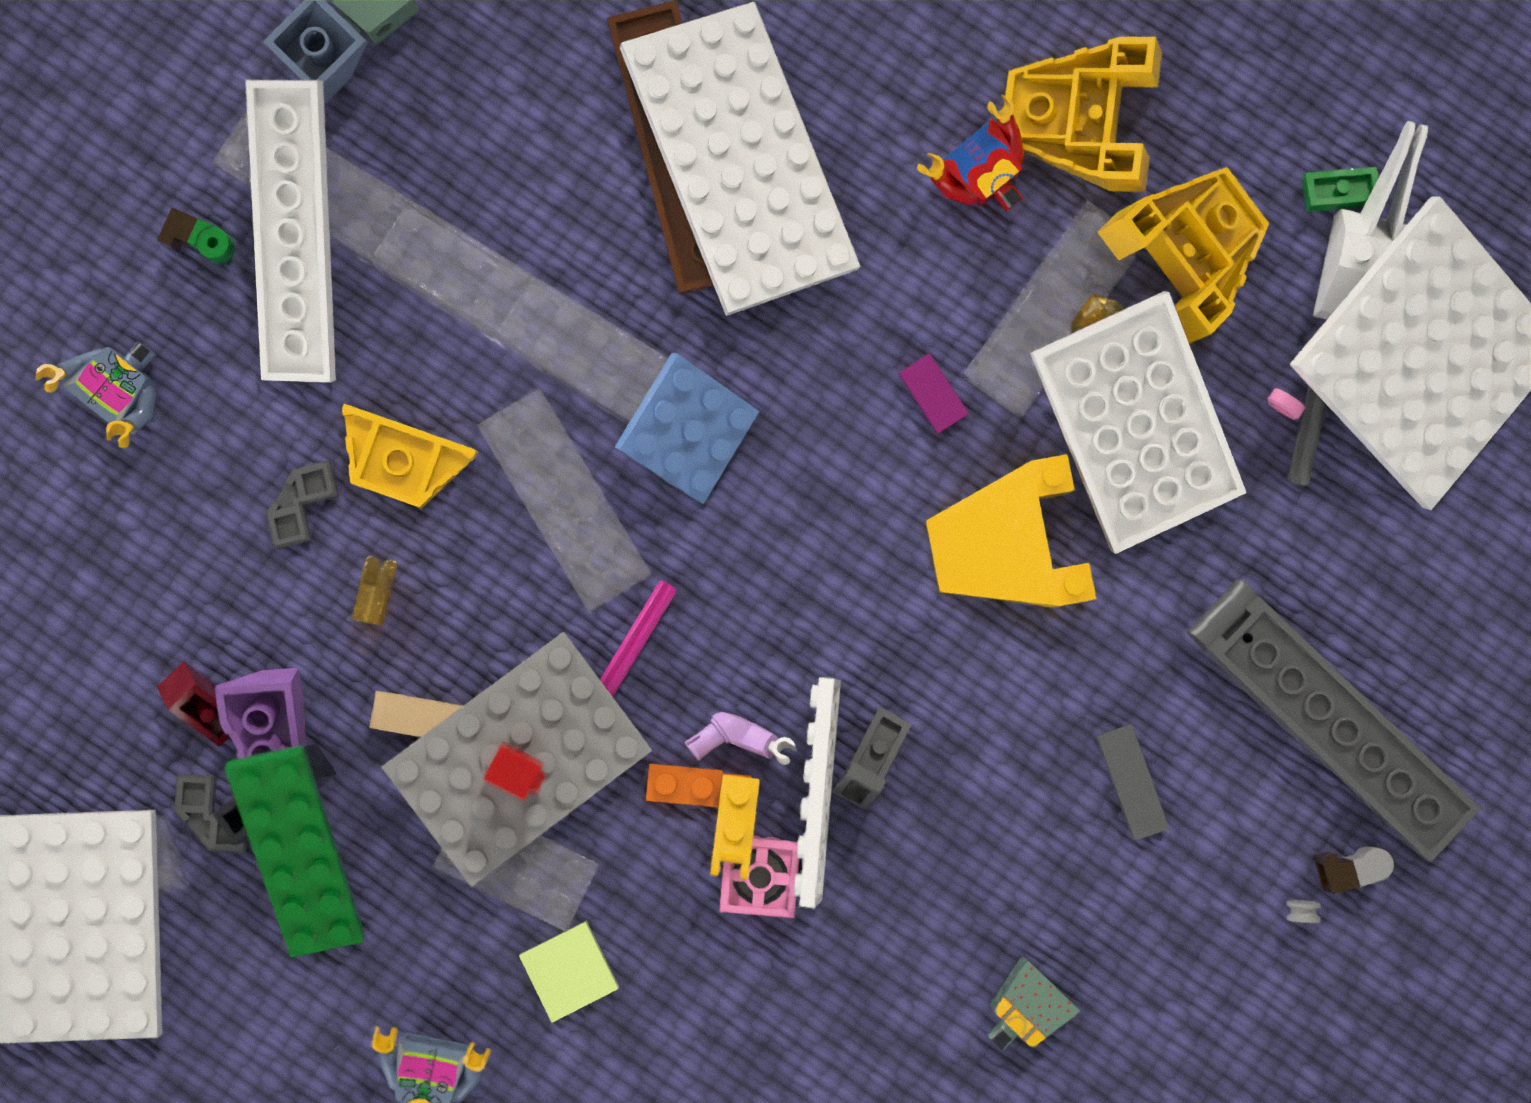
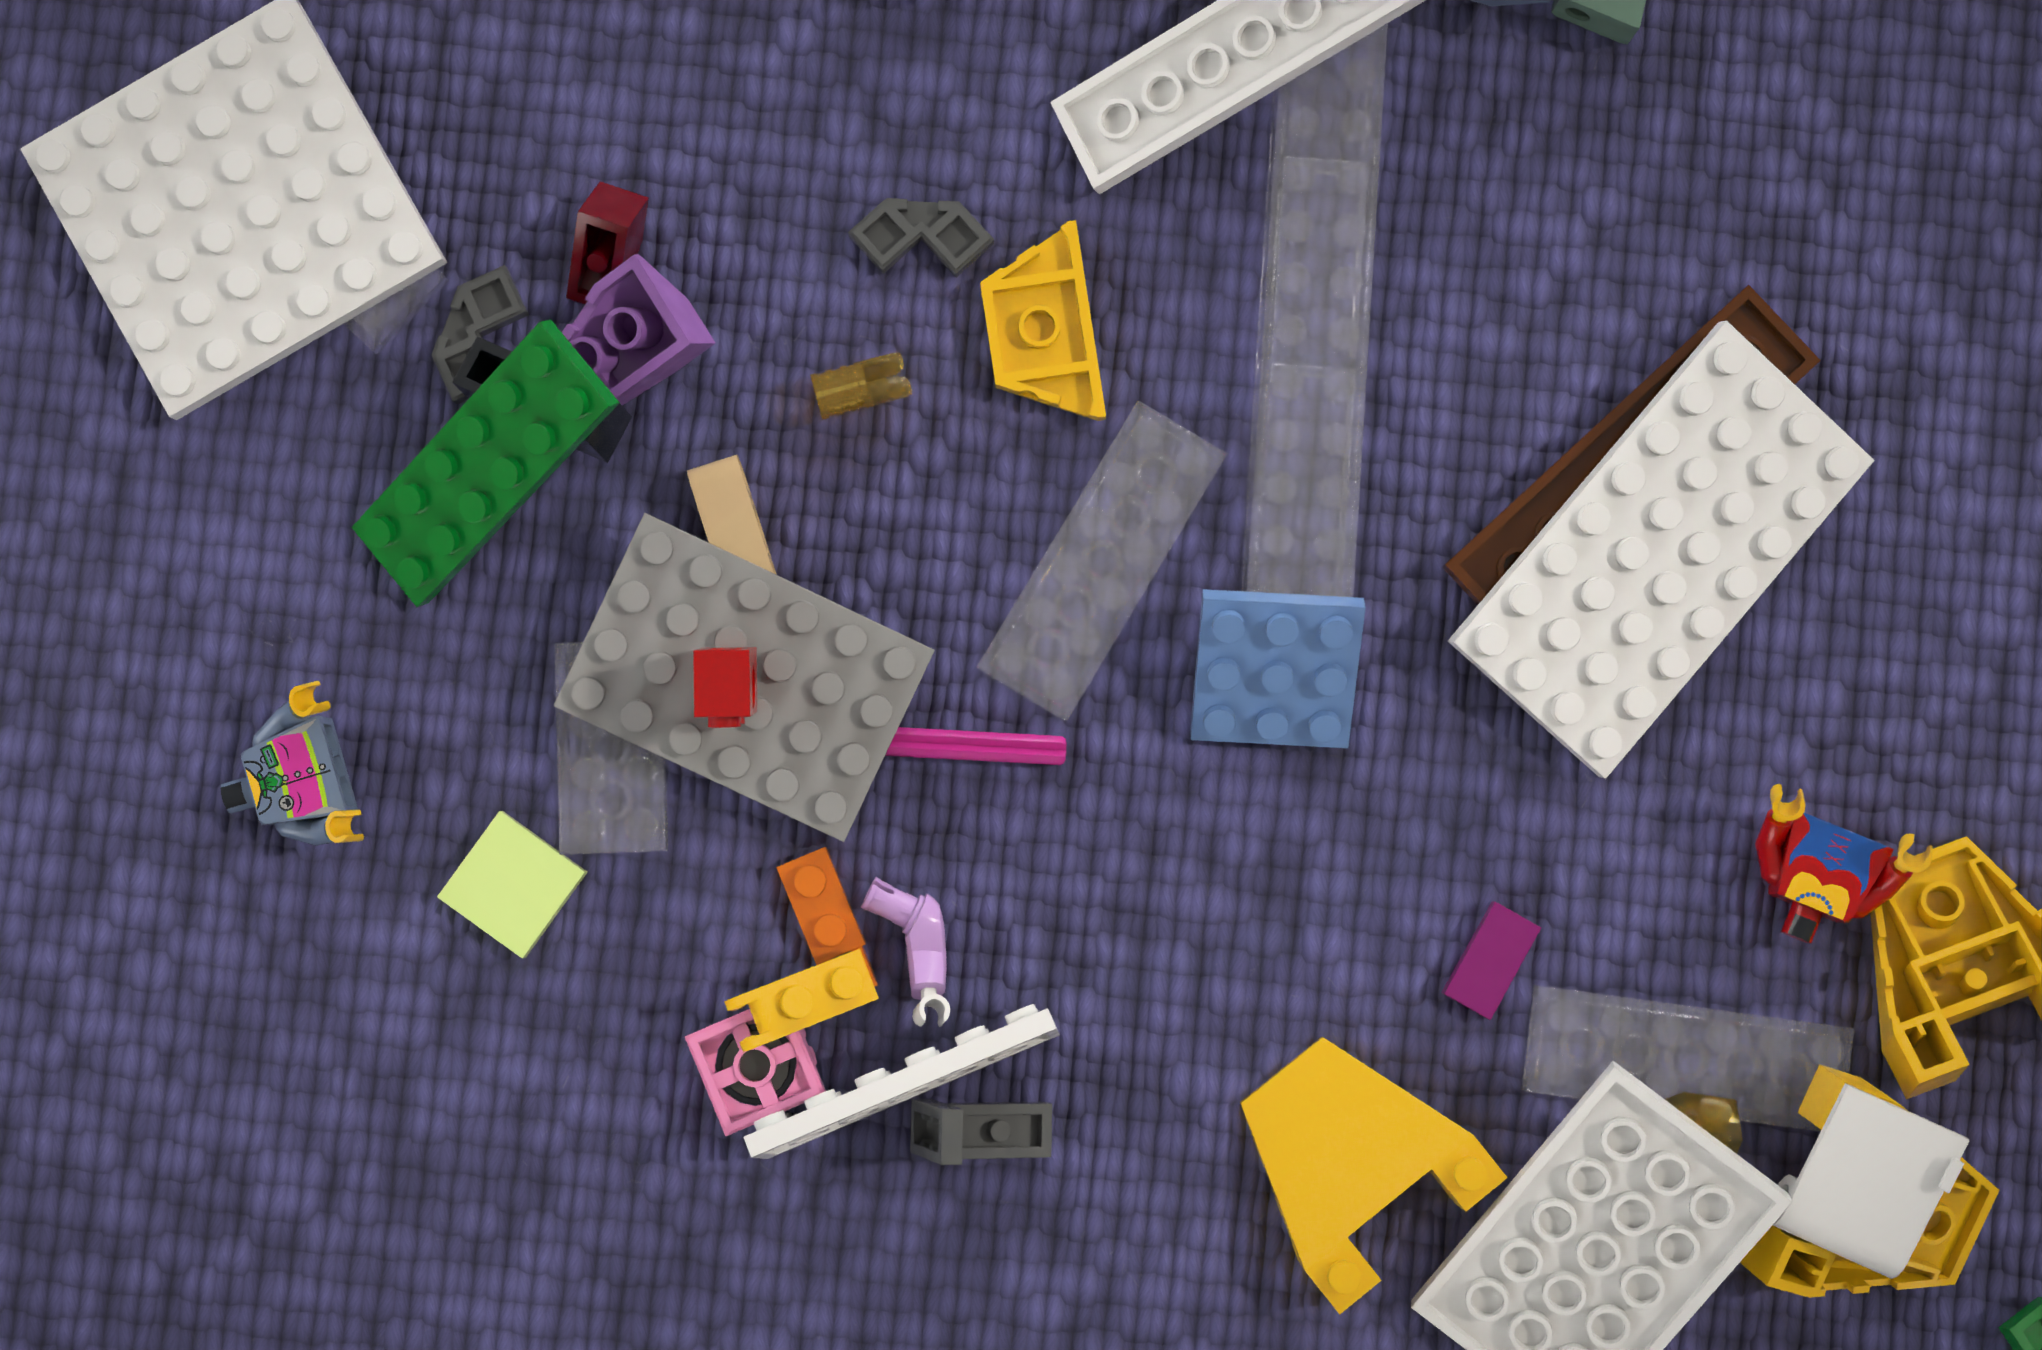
camera: 65 degrees right, 0 degrees up
(1181, 239) = (1872, 1182): none -> white door

